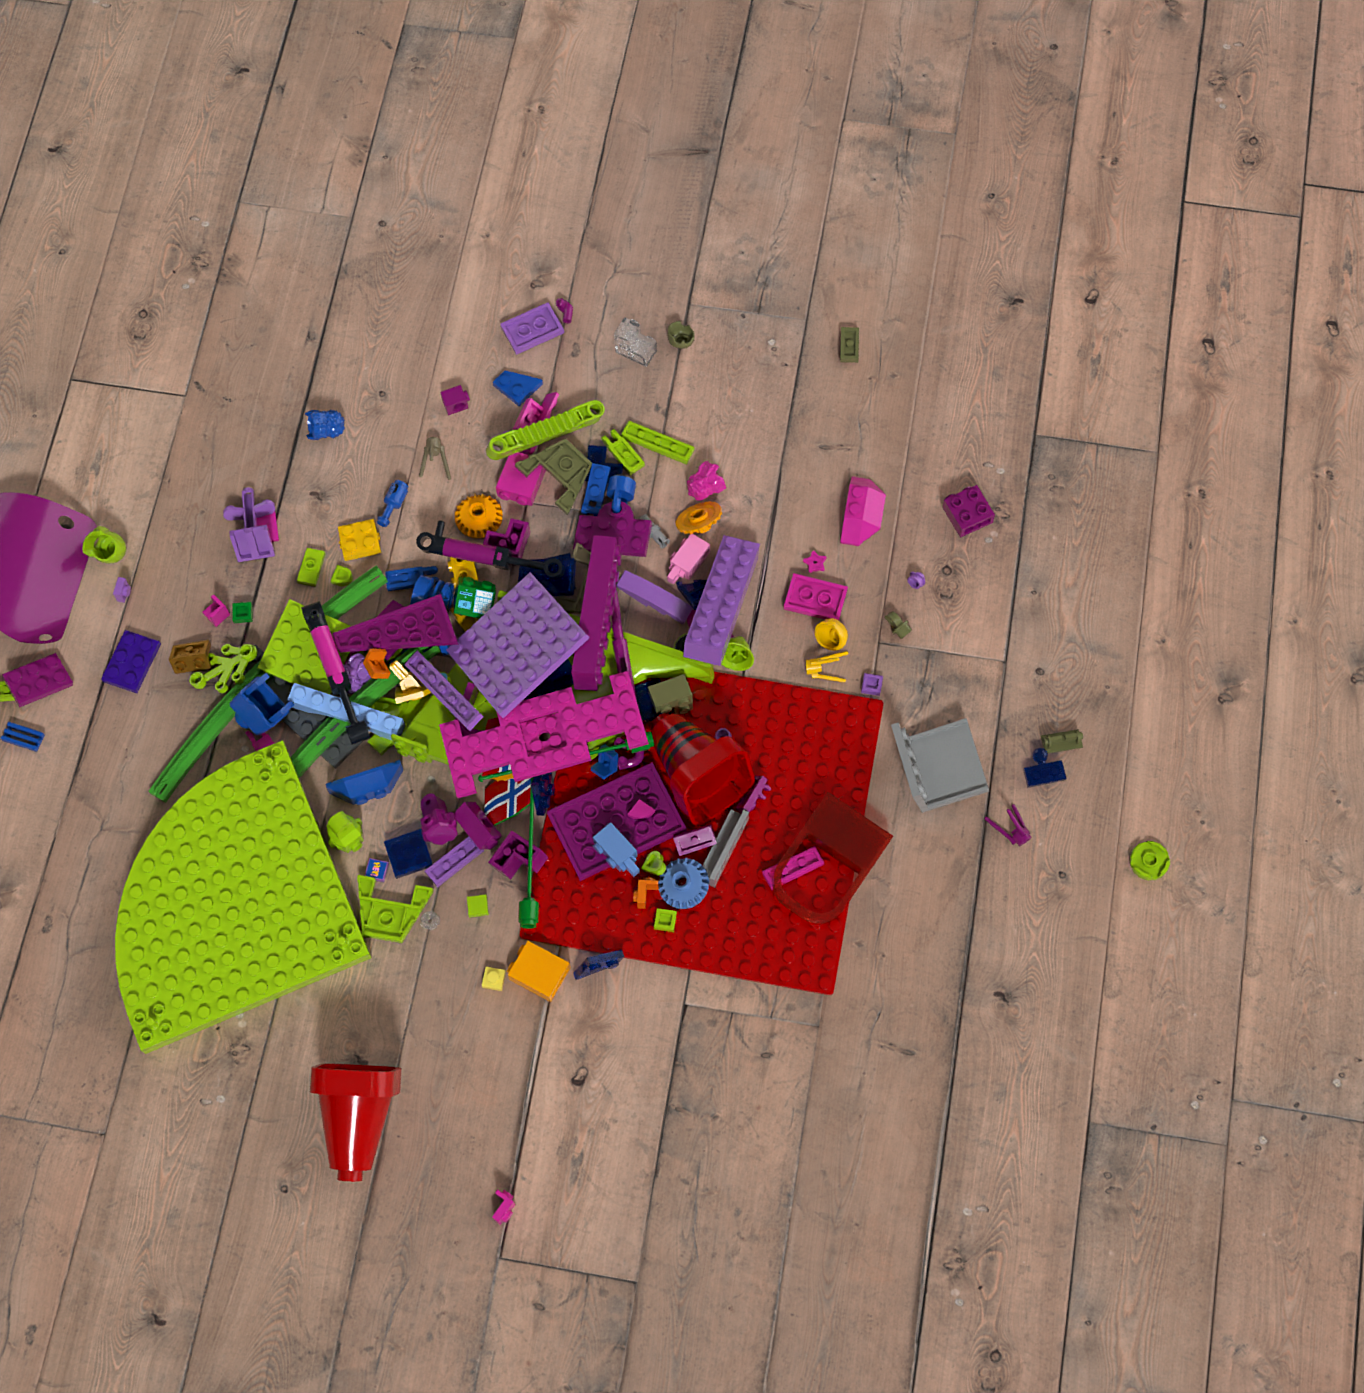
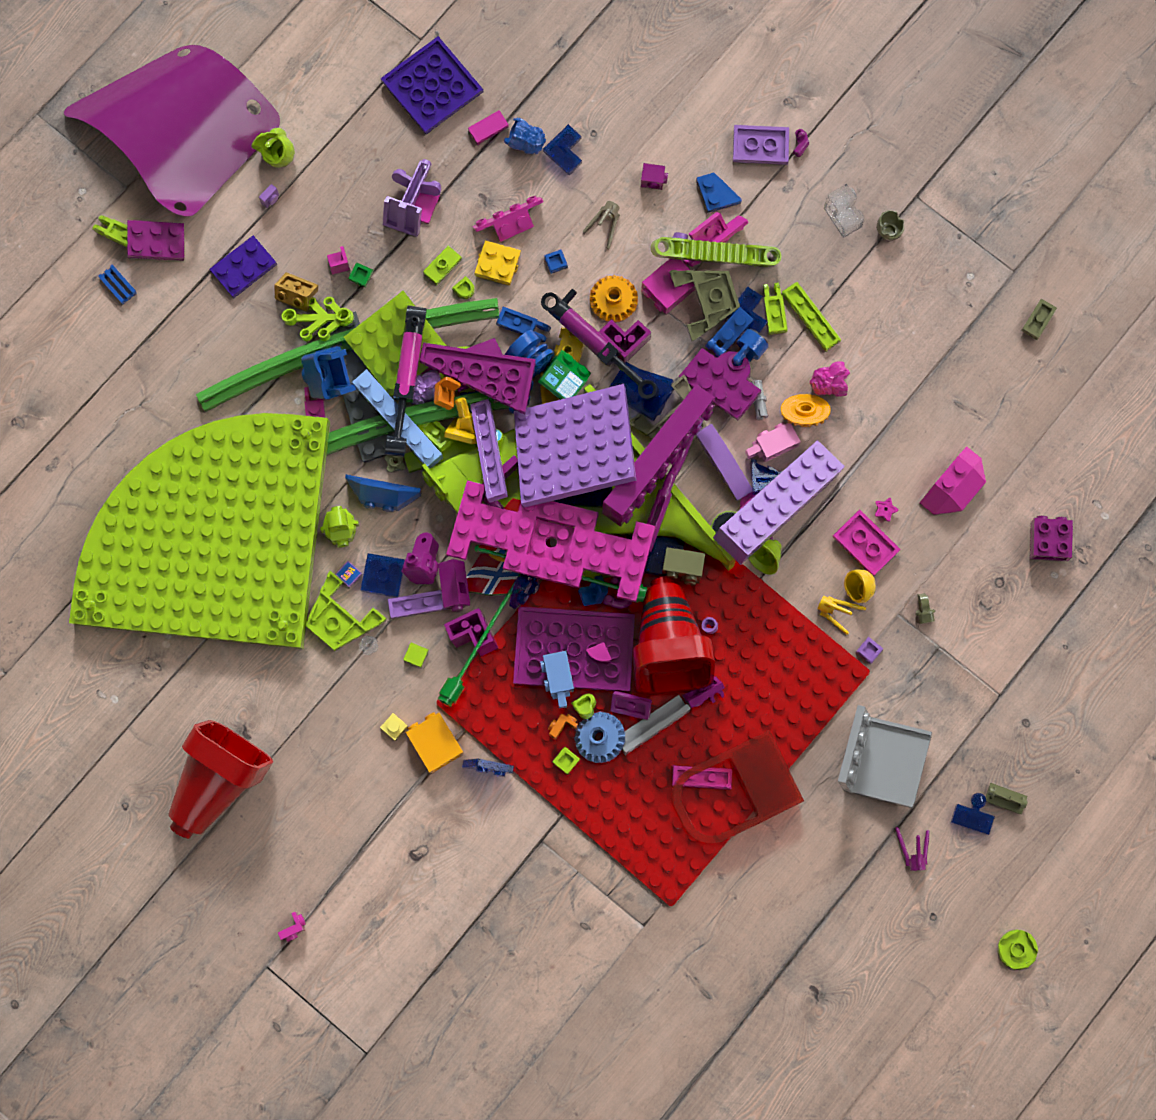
camera: 25 degrees right, 10 degrees up
(216, 425) = (432, 85): none -> dark purple plate
(286, 435) = (488, 127): none -> dark pink tile
(352, 500) = (511, 221): none -> dark pink bracket
(361, 420) = (560, 149): none -> clear blue plate
(363, 758) = (394, 467): none -> olive plate
(393, 500) = (547, 242): blue piece -> none
(410, 512) = (555, 261): none -> blue tile
(916, 580) = (966, 576): medium lavender plate -> none

